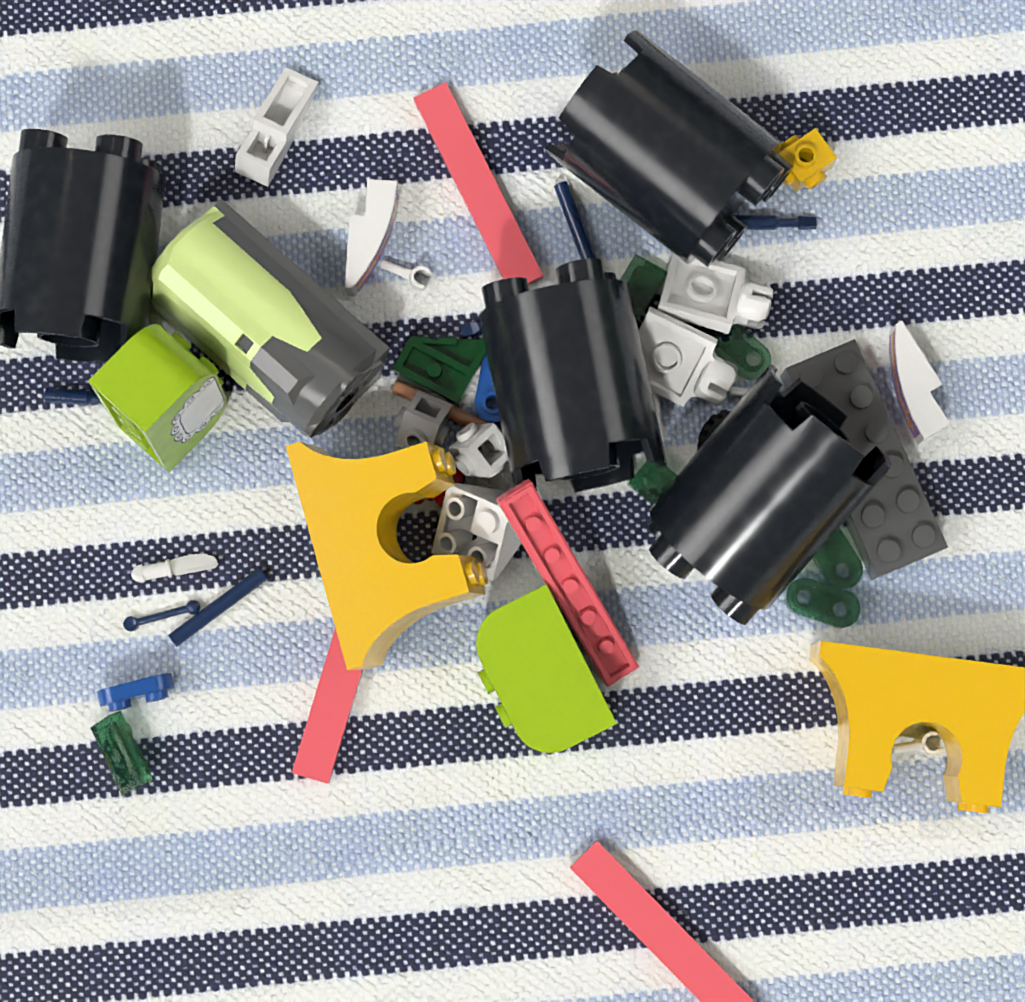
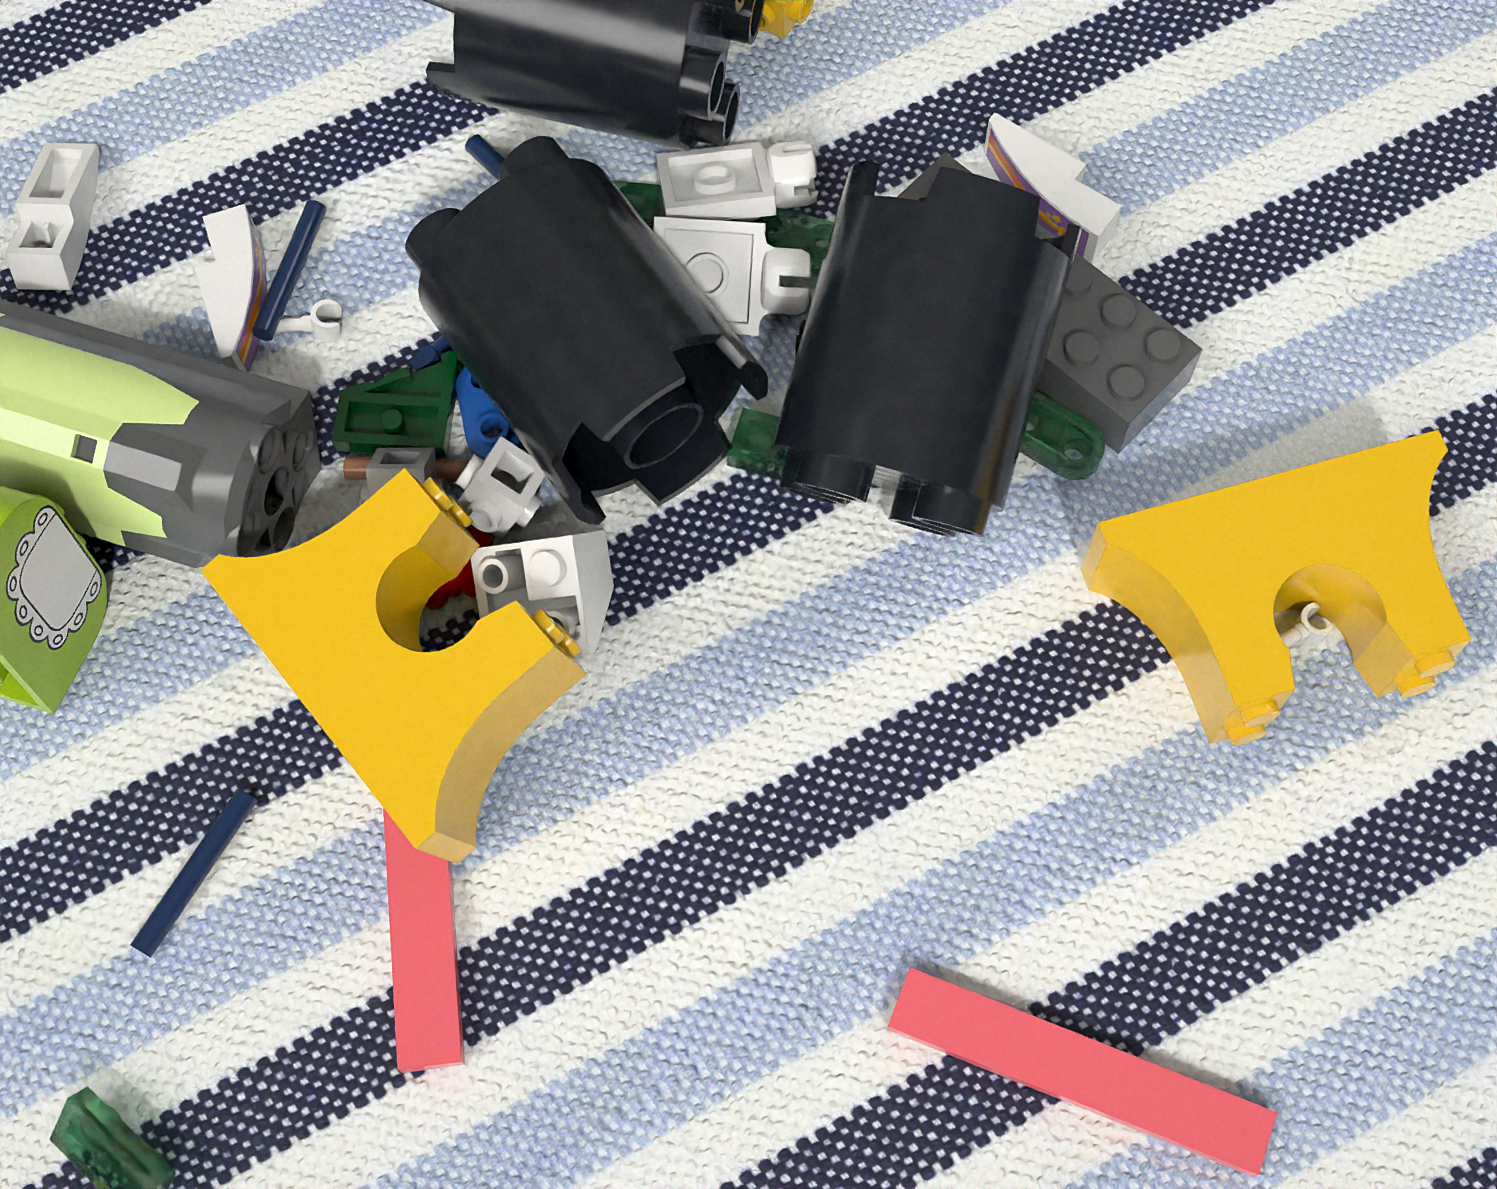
camera: 25 degrees left, 15 degrees down
(120, 696) = (122, 1034): blue plate -> none
(132, 623) = (69, 954): dark blue hinge -> none
(176, 566) = (108, 841): white piece -> none
(409, 231) = (289, 270): none -> dark blue bar
(477, 184) = (333, 164): coral tile -> none
(540, 675) = (720, 754): lime brick -> none
(567, 582) = (698, 602): coral tile -> none
(772, 222) = (771, 82): dark blue piece -> none
(821, 603) = (1066, 500): clear green plate -> none

